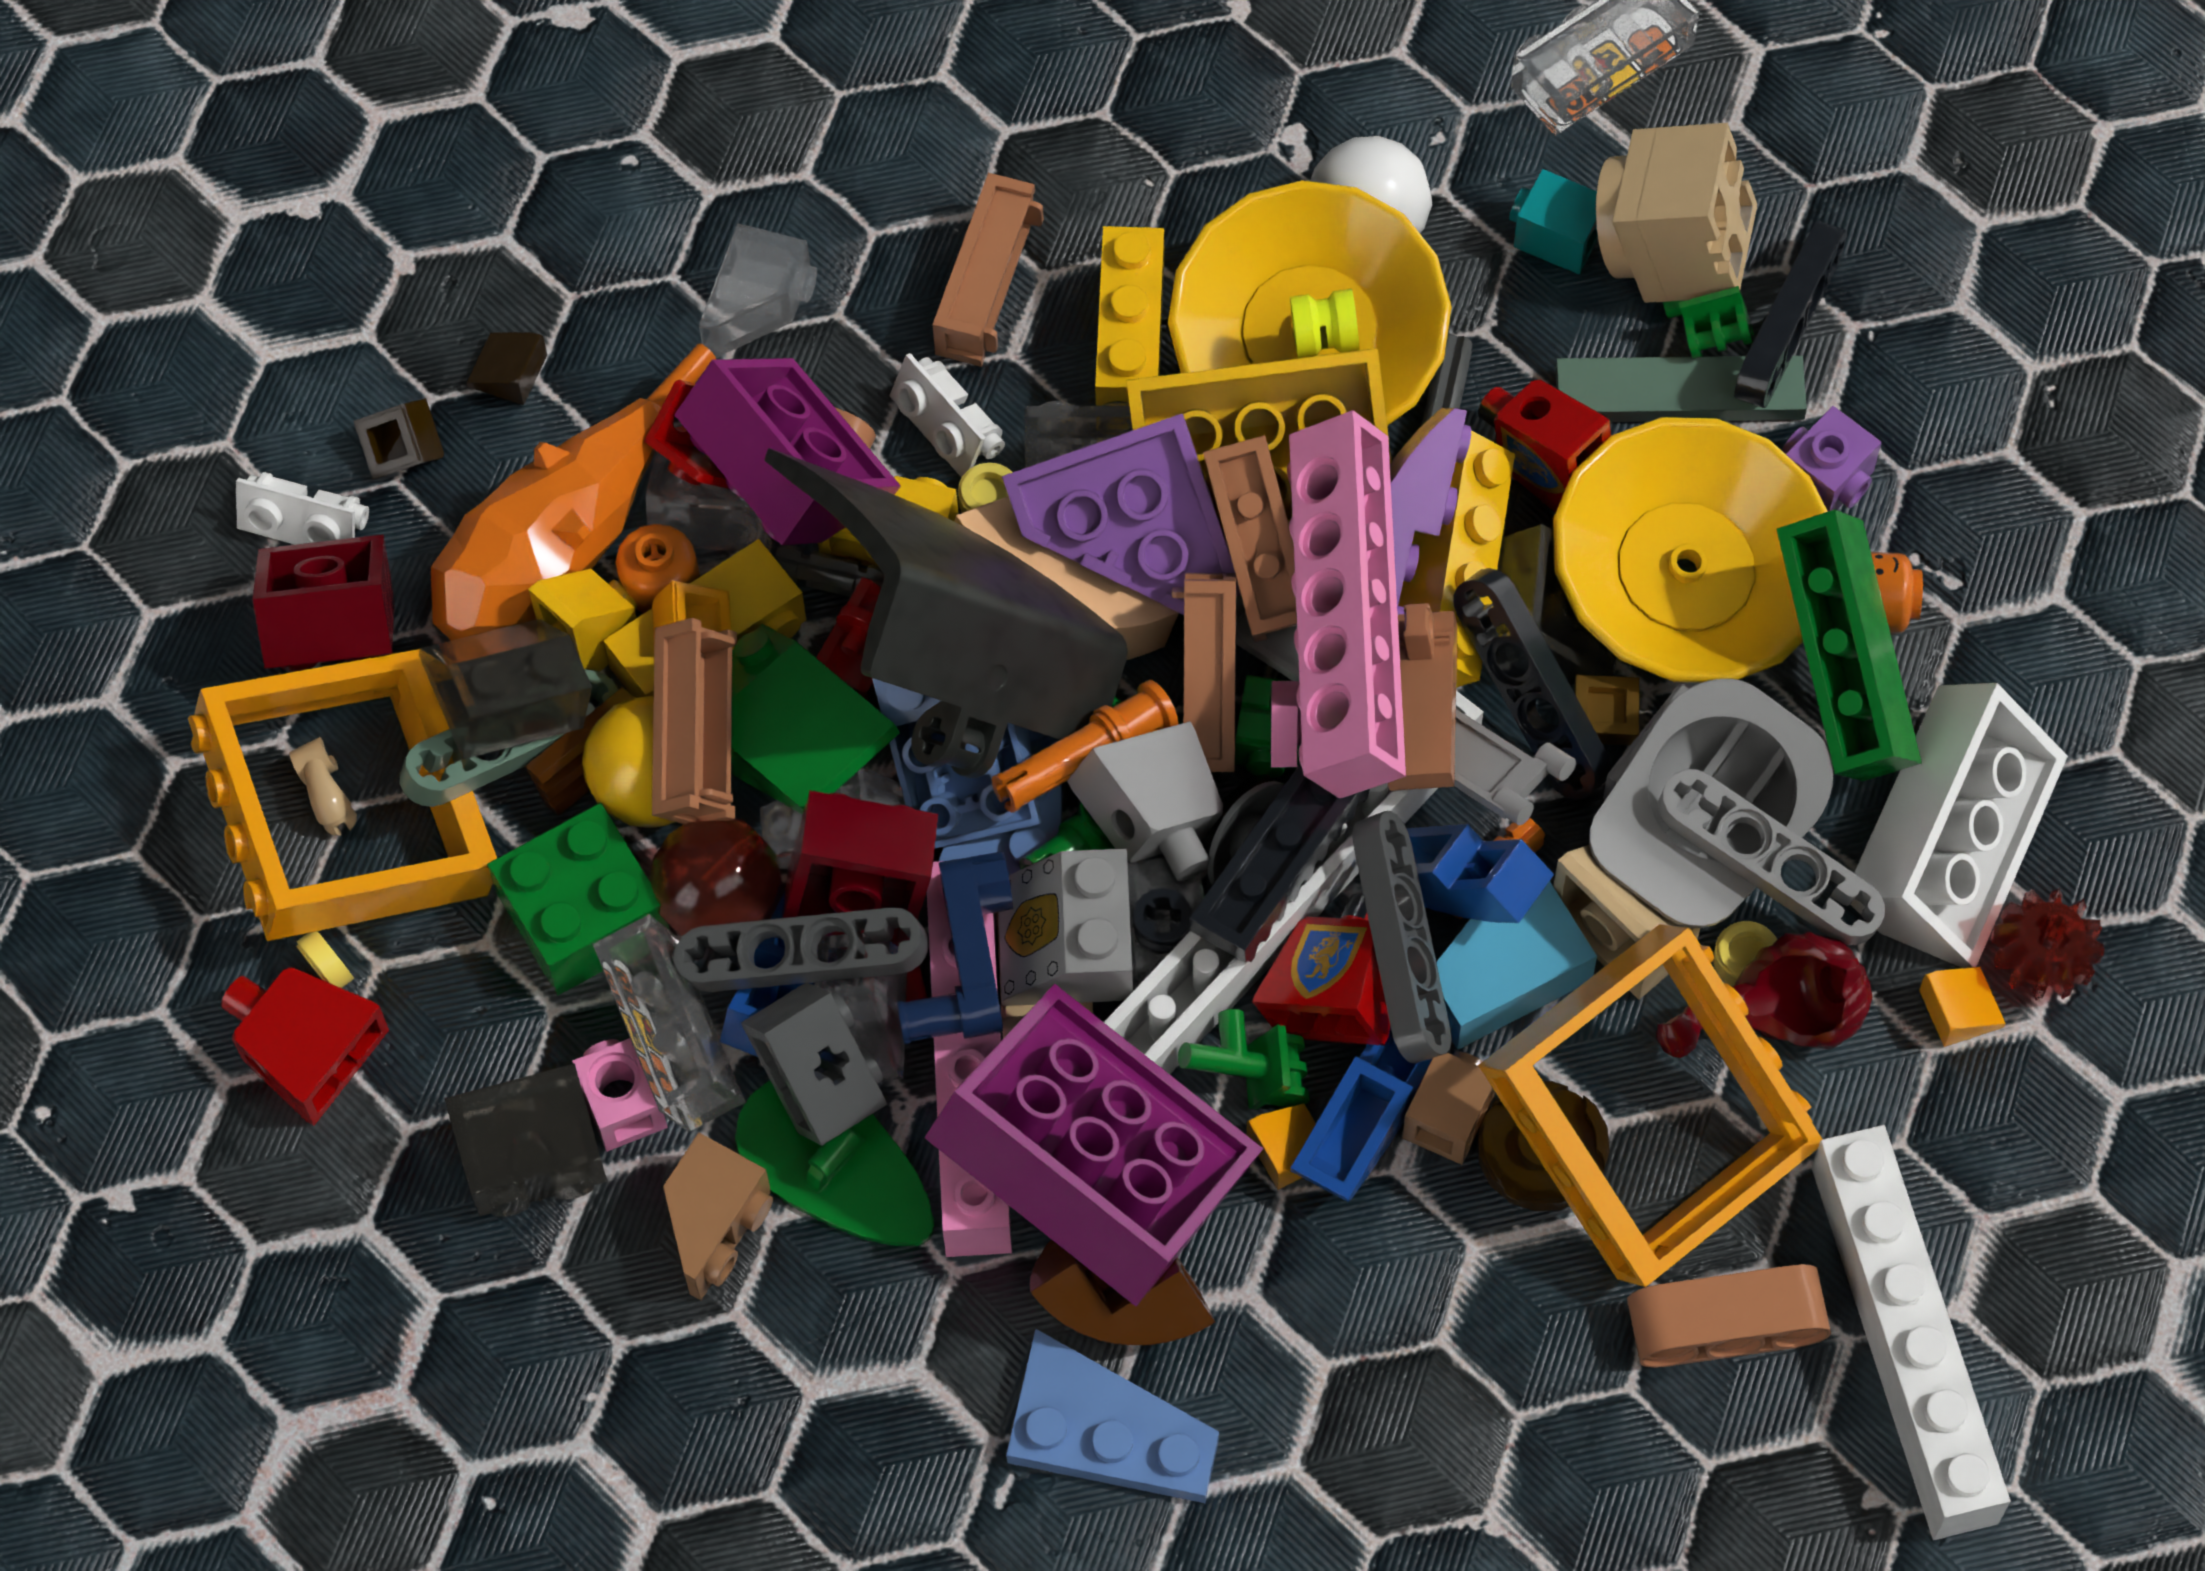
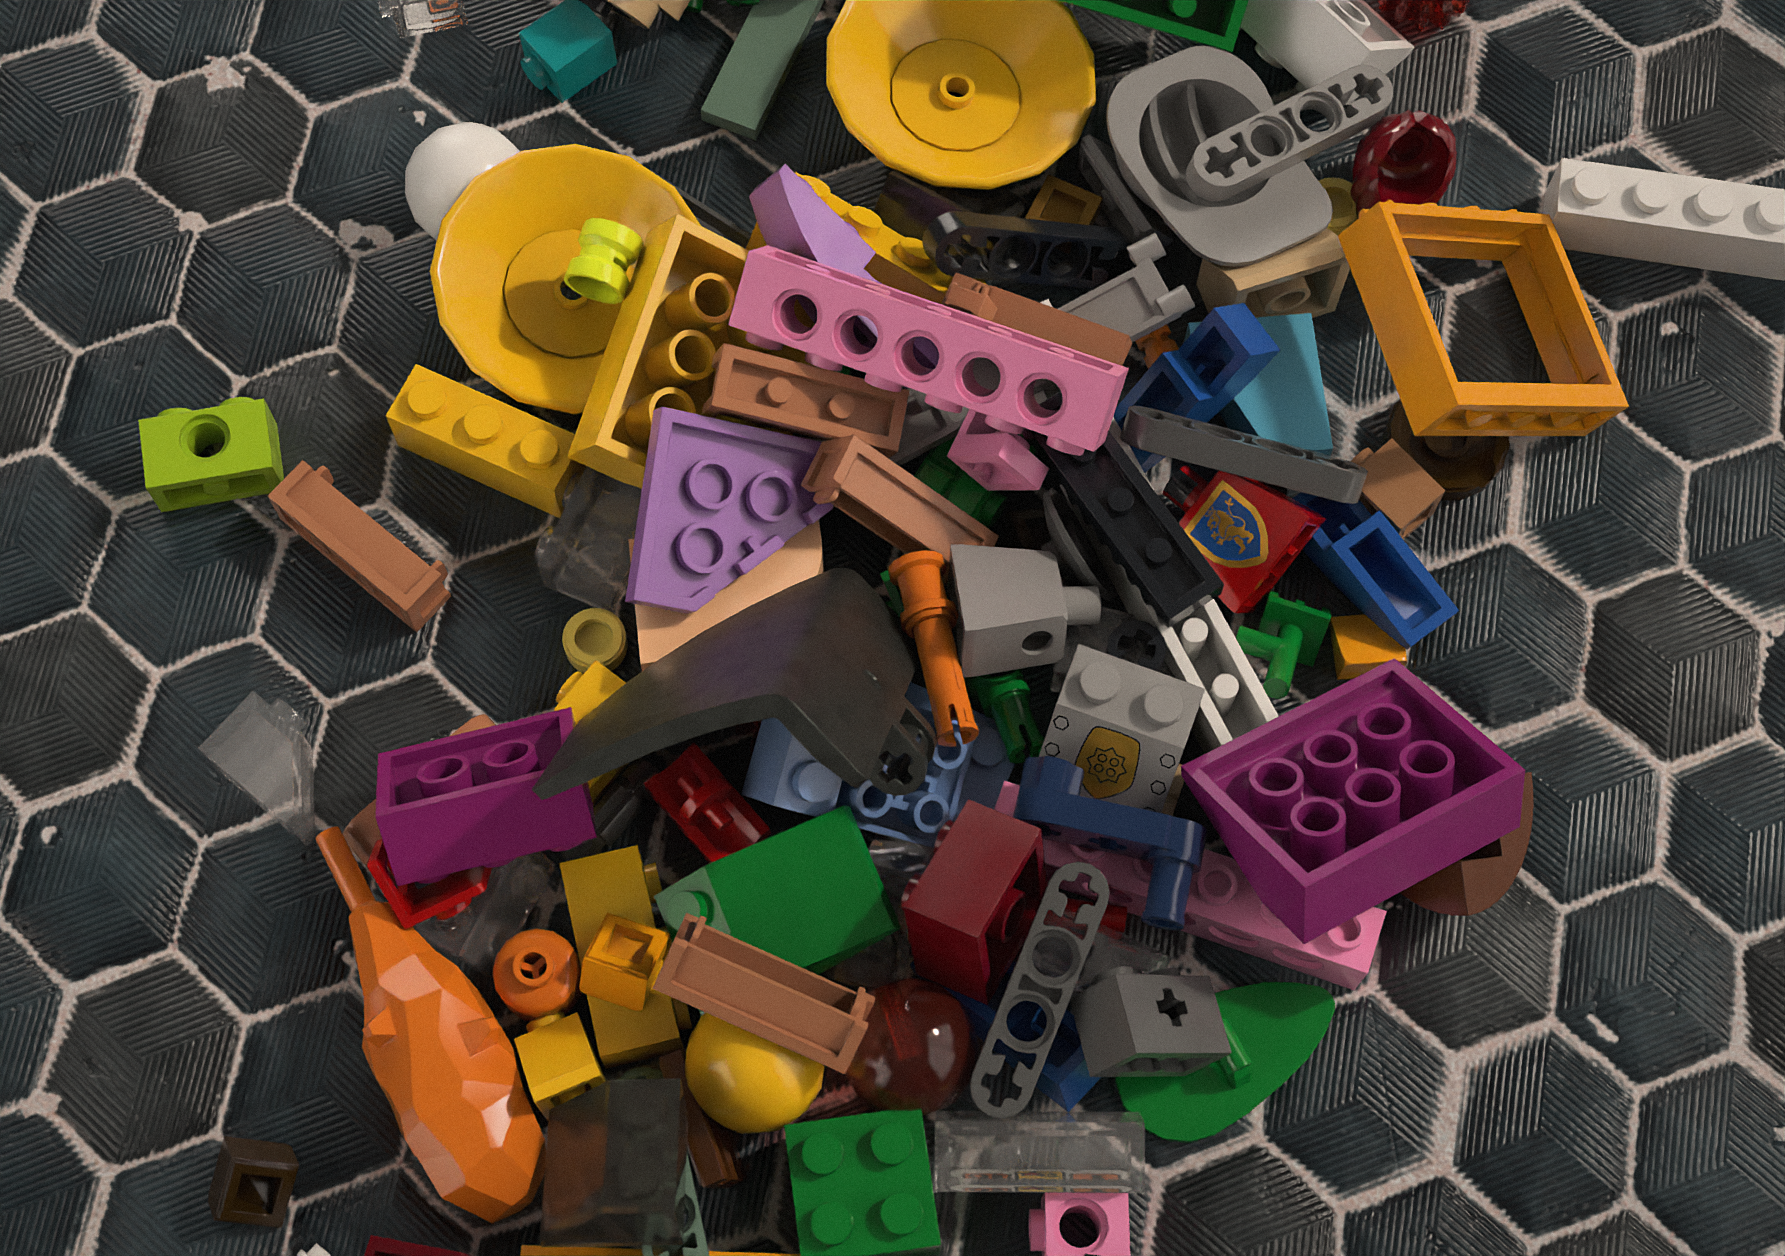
camera: 70 degrees left, 5 degrees up
(509, 365) = (222, 1040): dark brown slope -> none
(711, 1205) = (1240, 1190): medium nougat slope -> none
(931, 401) = (471, 653): white hinge -> none
(1008, 87) = (242, 469): none -> lime brick
(1105, 1428) = (1578, 914): medium blue wing -> none
(1546, 434) = (794, 130): red torso -> none
(1728, 1316) = (1665, 359): nougat beam -> none
(1960, 1004) = (1445, 71): light orange slope -> none

